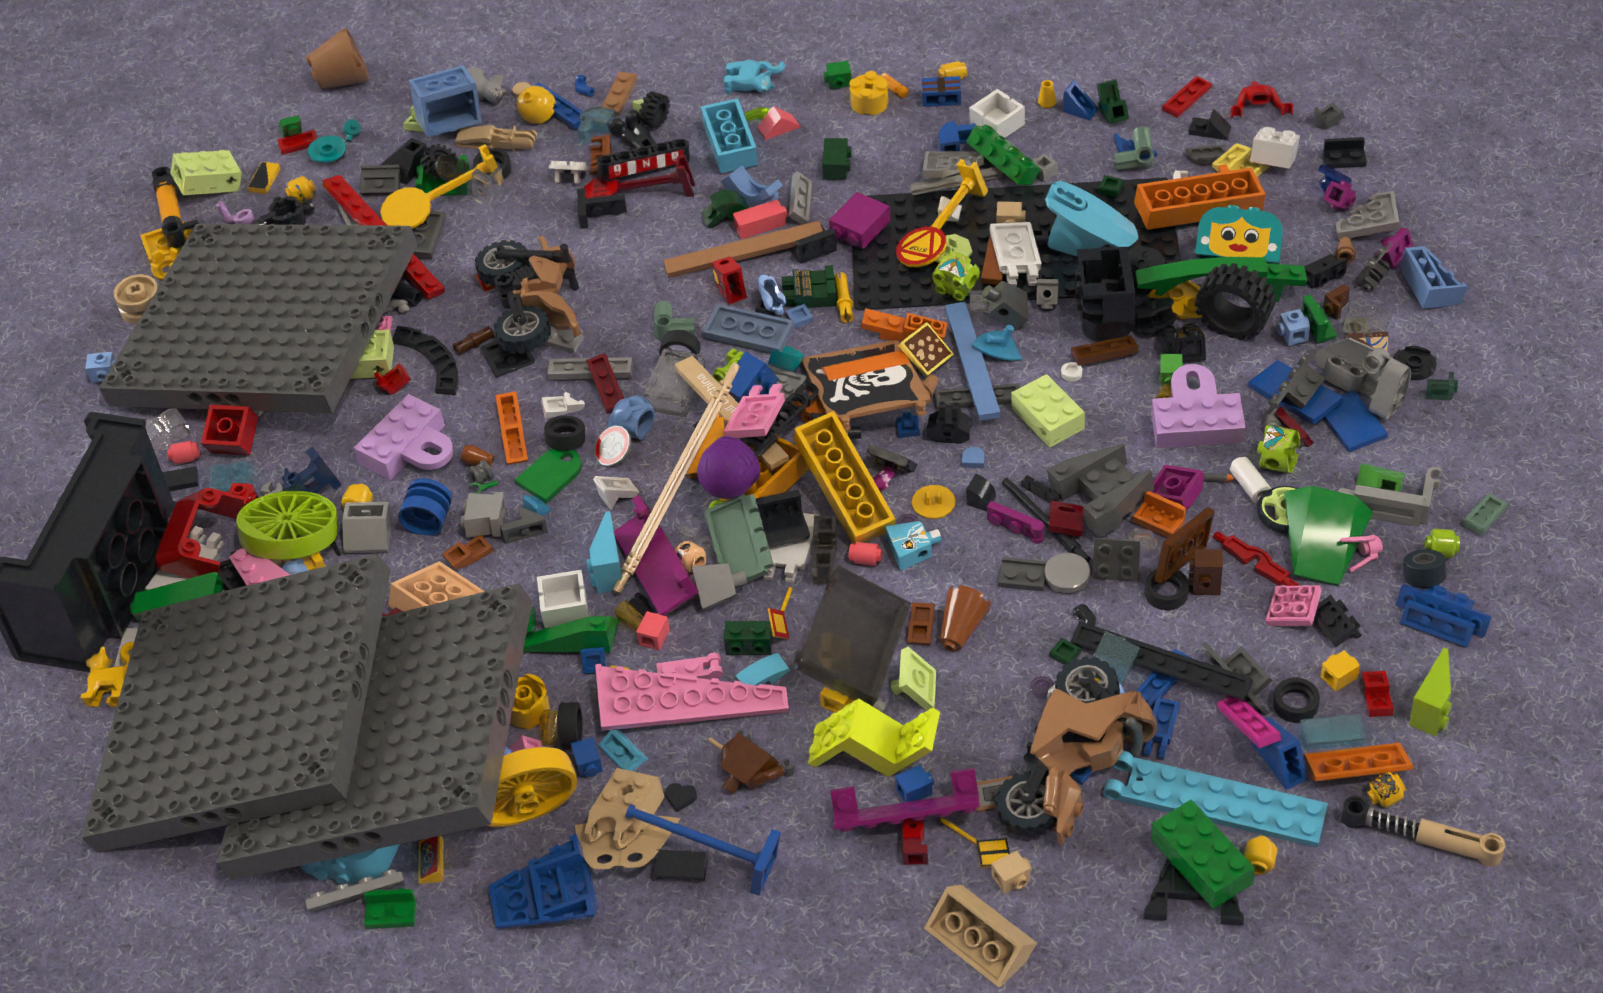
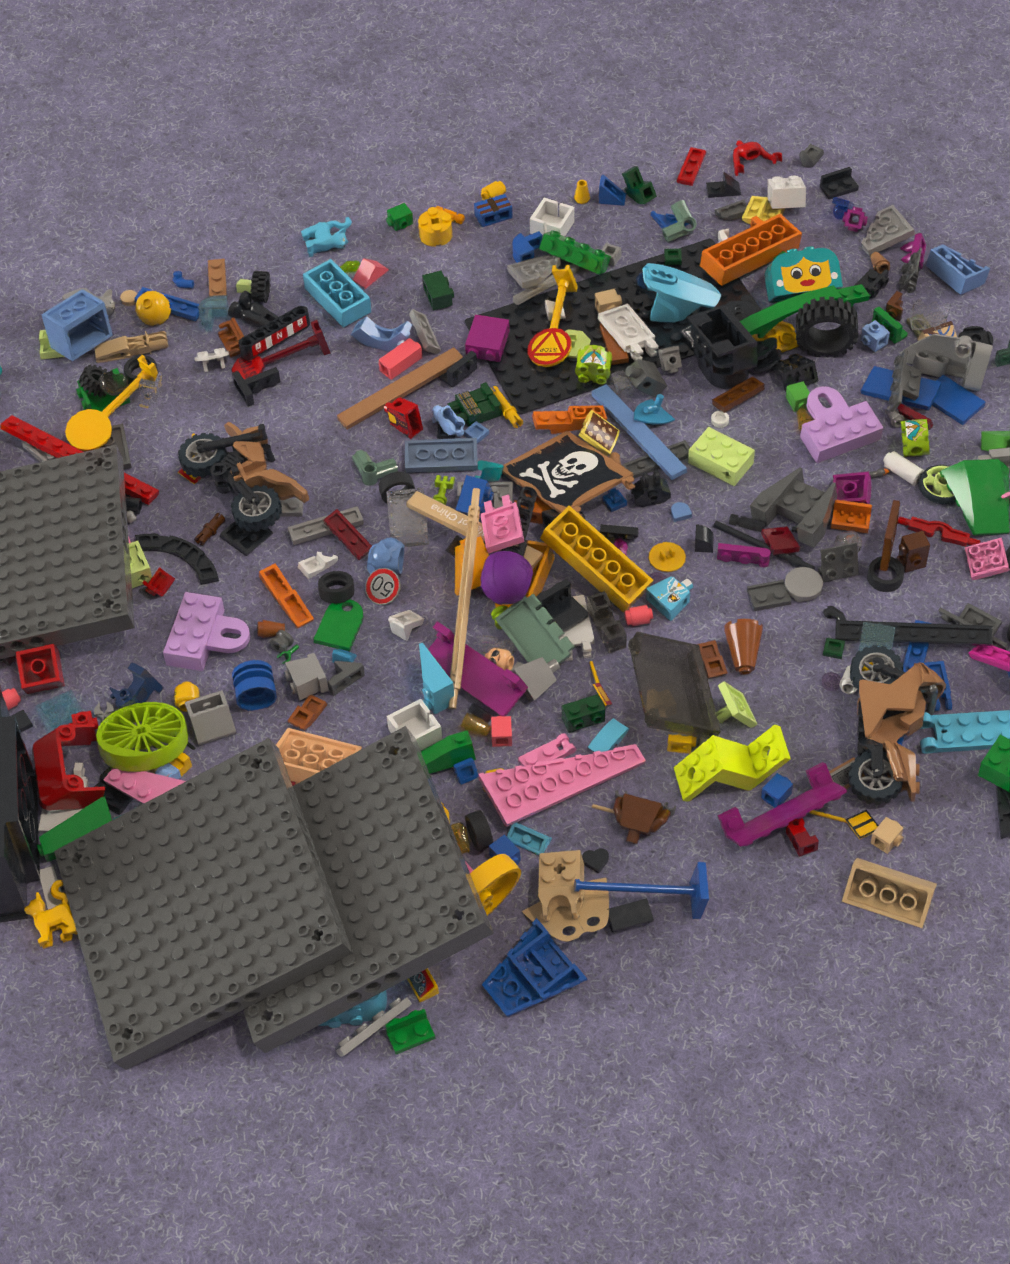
camera: 25 degrees left, 5 degrees up
(379, 179) = (47, 410): dark grey plate -> none
(408, 158) = (60, 387): black slope -> none
(723, 204) = (367, 353): dark green brick -> none
(865, 365) = (557, 459): orange slope -> none

